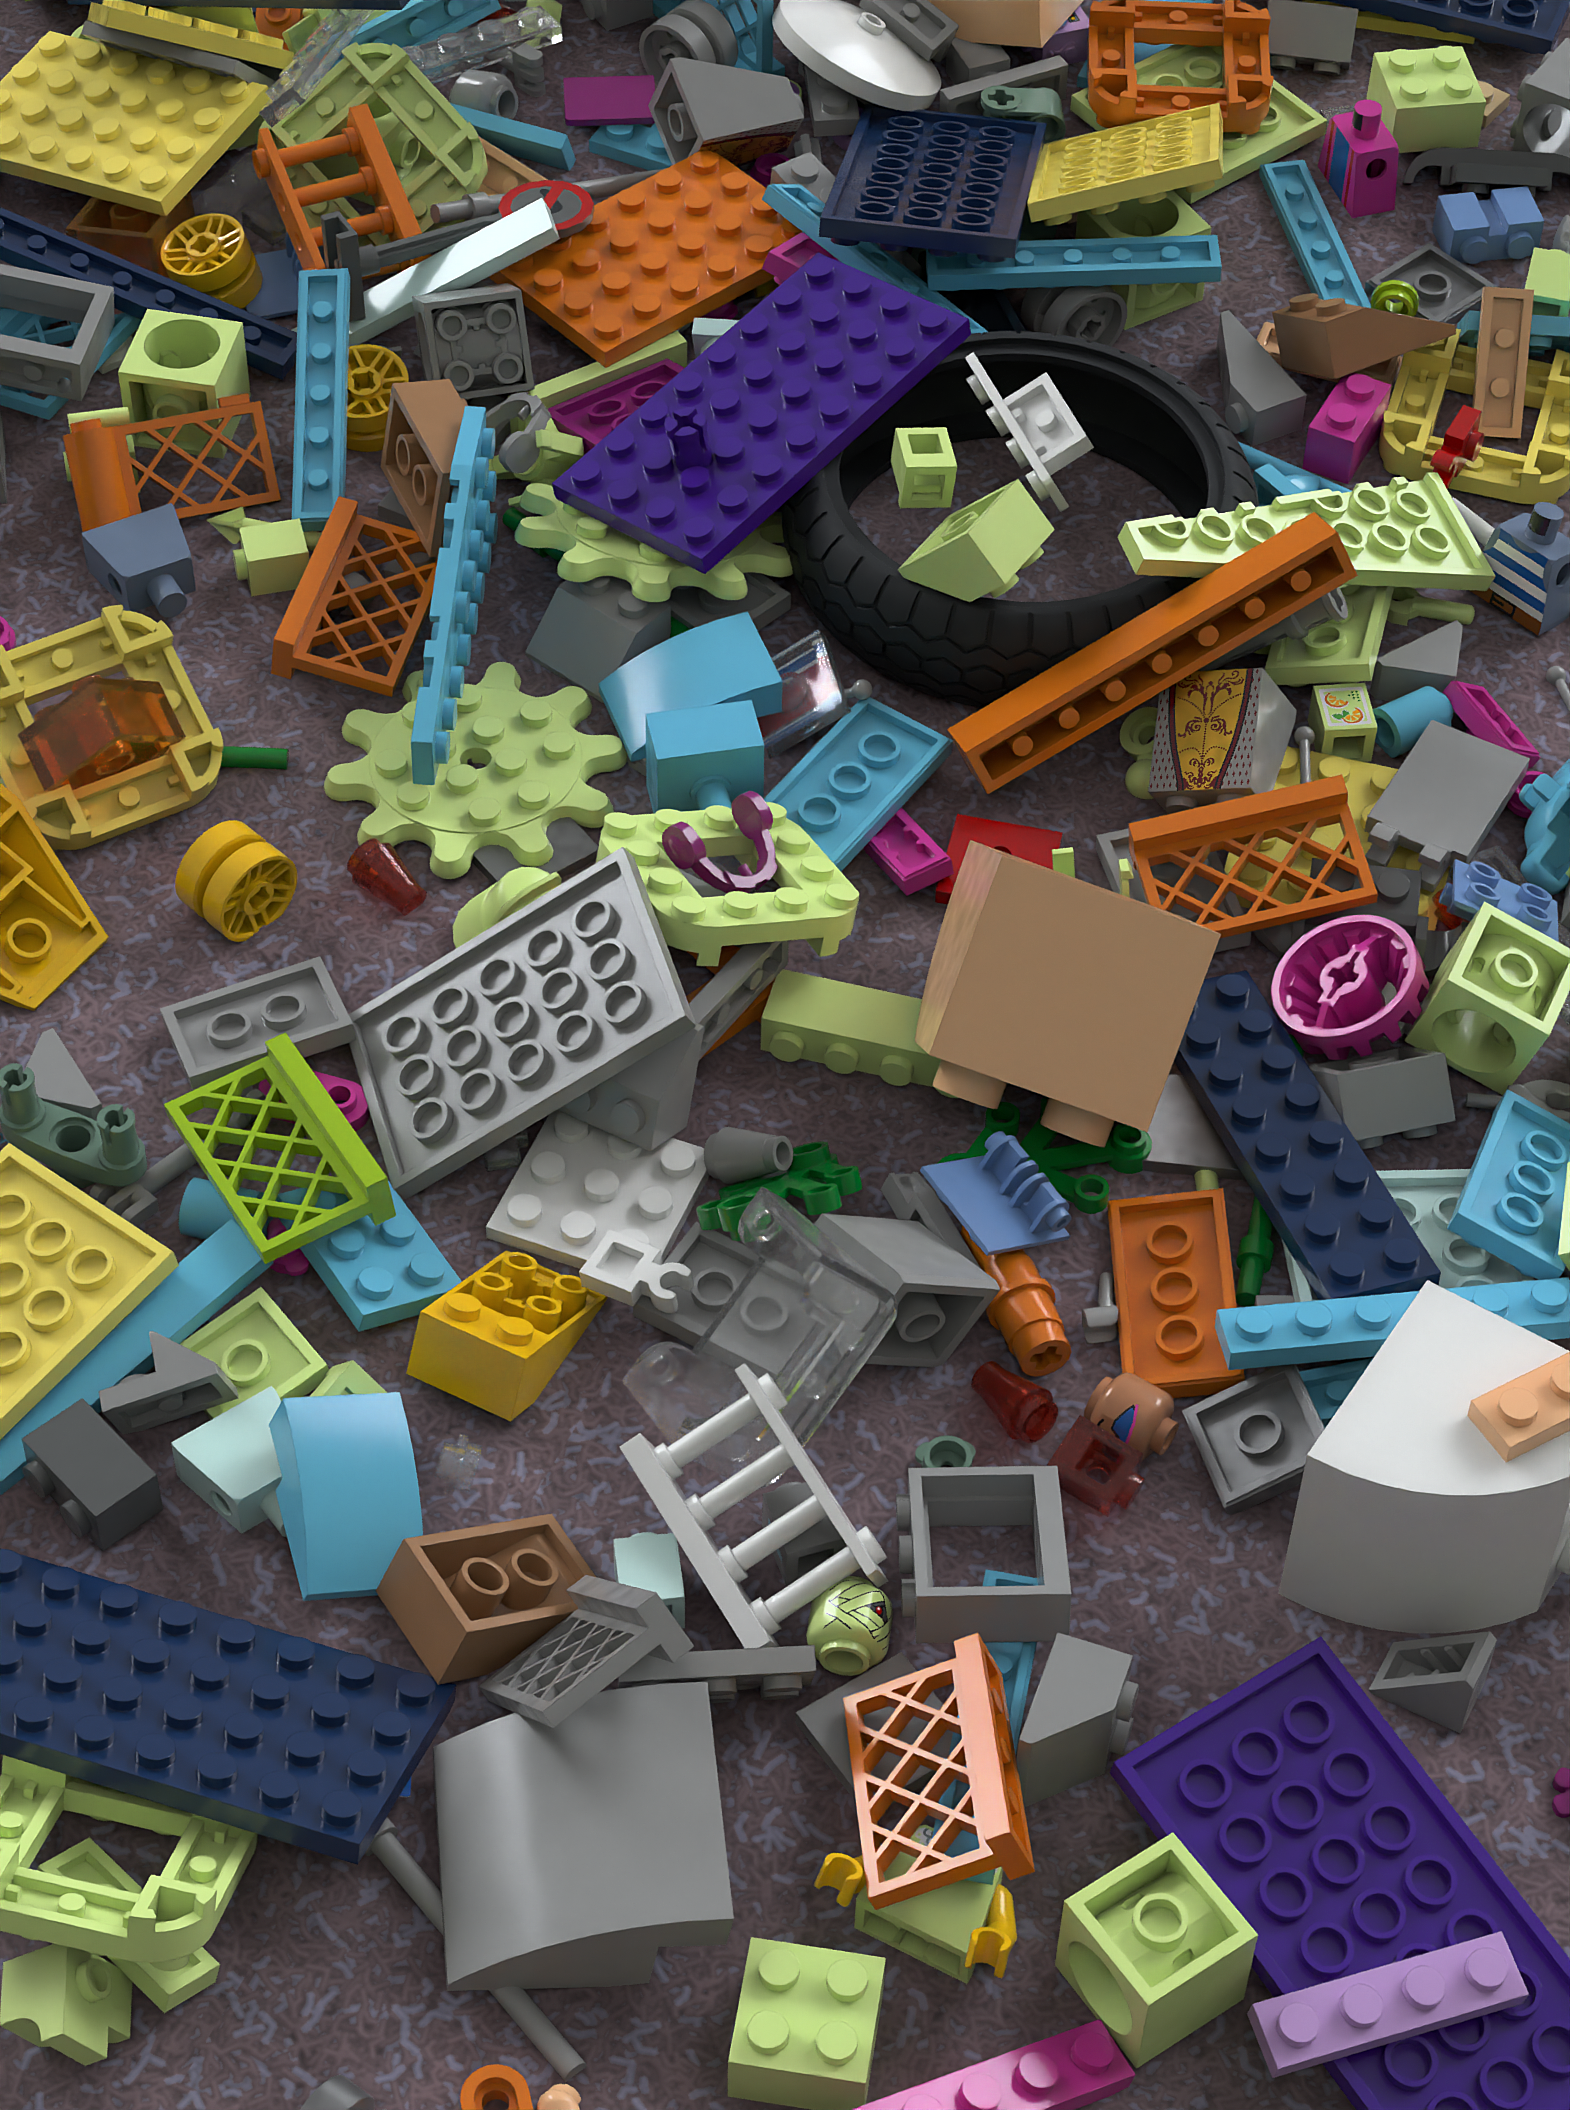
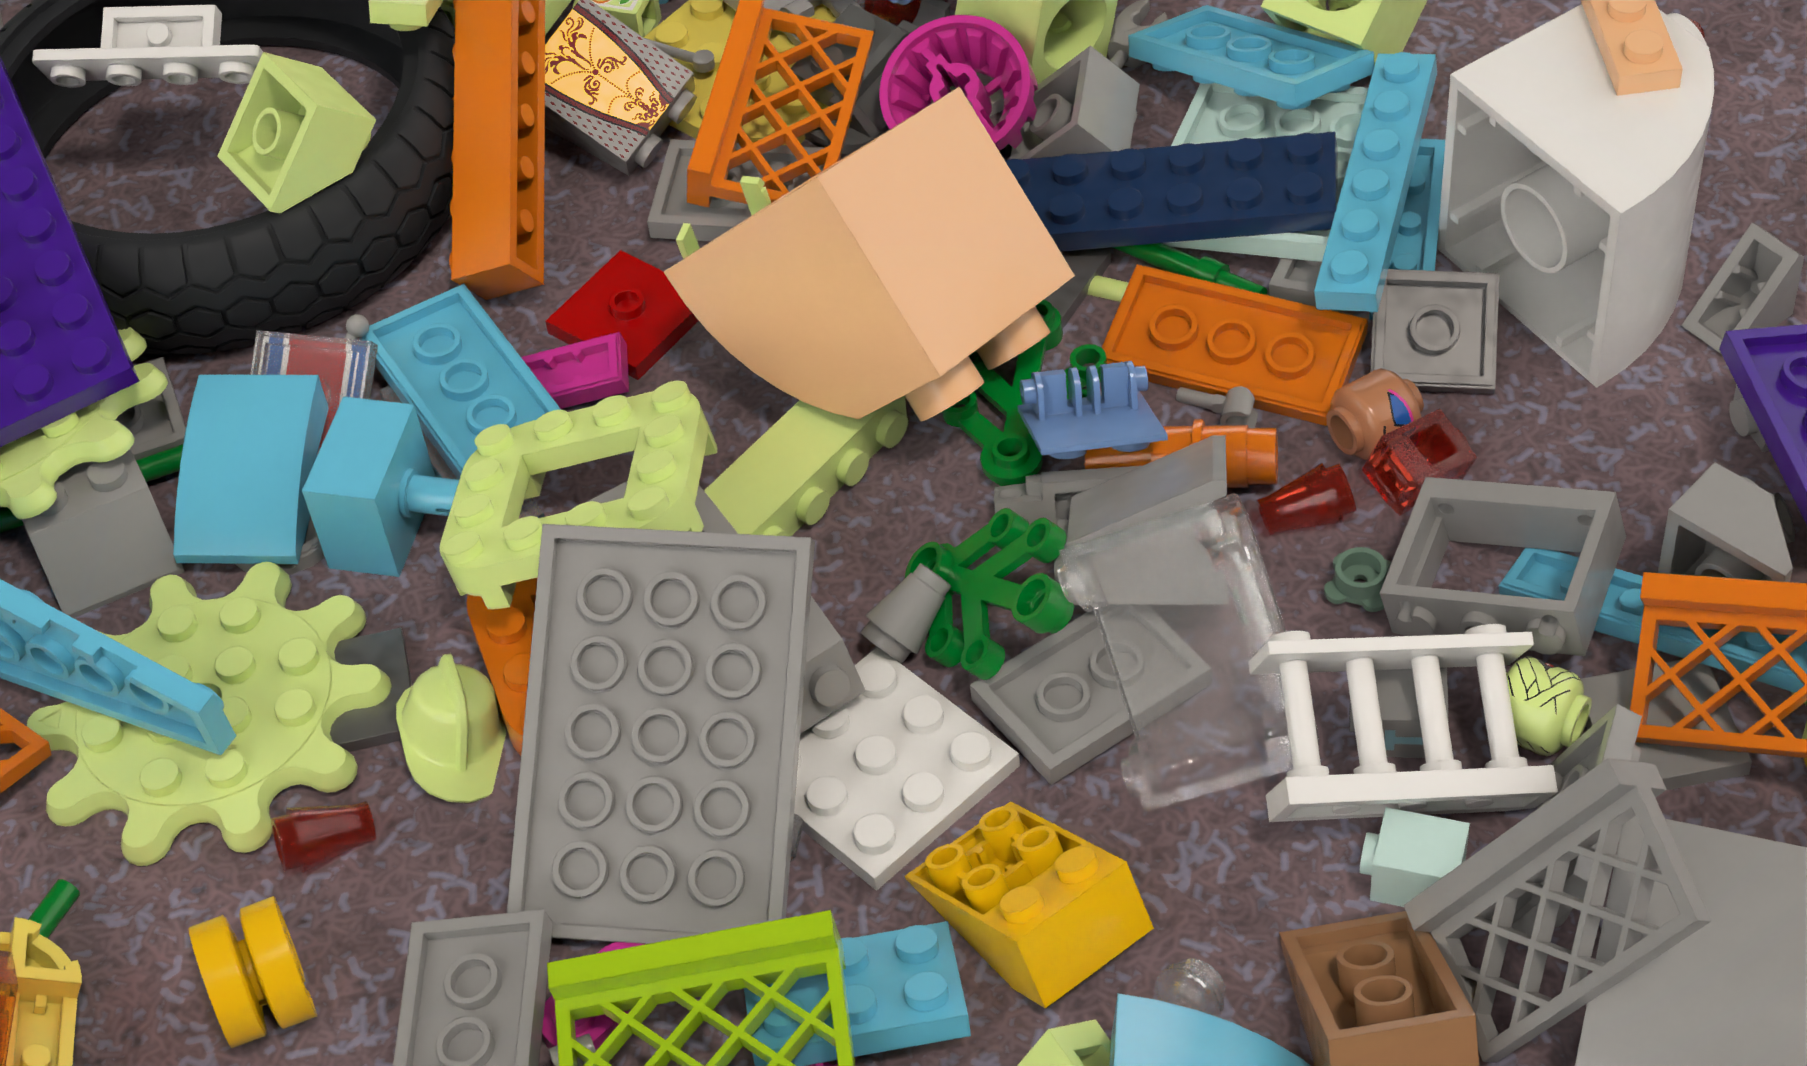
camera: 60 degrees left, 0 degrees up
(629, 1268) = (1020, 755): white plate -> none
(754, 821) = (542, 492): magenta piece -> none
(923, 467) = (150, 143): yellowish green brick -> none
(1134, 737) = (582, 171): yellowish green plate -> none

